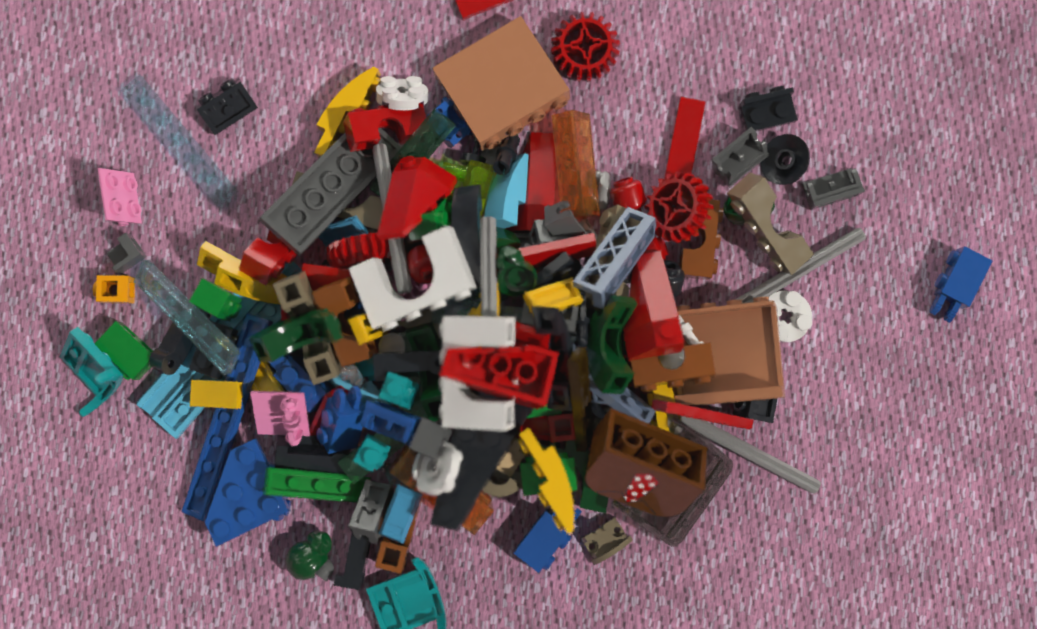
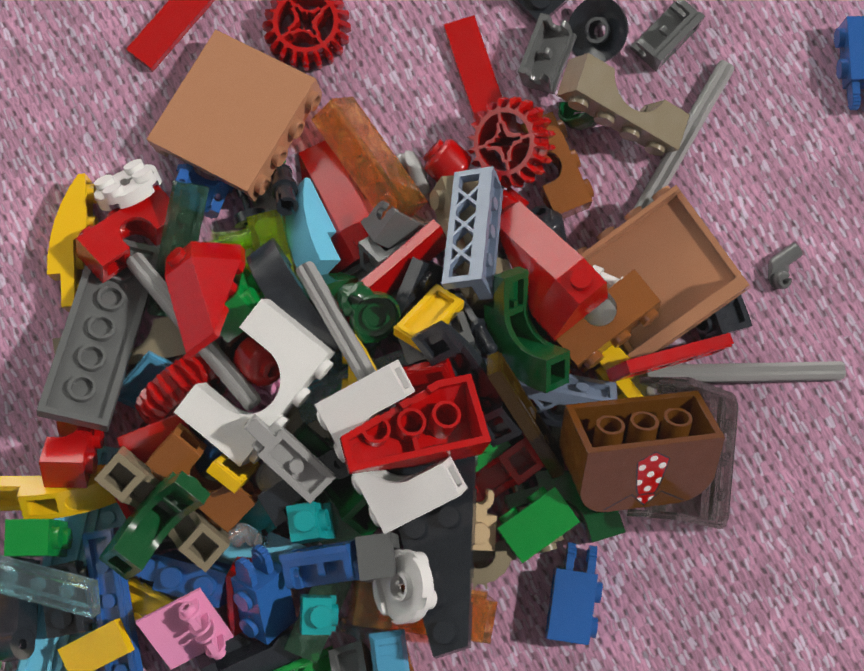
camera: 30 degrees left, 5 degrees down
(407, 342) = (289, 458): none -> light grey hinge
(556, 489) = (556, 531): yellow slope -> none
(606, 541) = (643, 565): dark tan piece -> none
(801, 315) = (711, 187): white plate -> none
(815, 393) = (779, 266): none -> dark grey arm

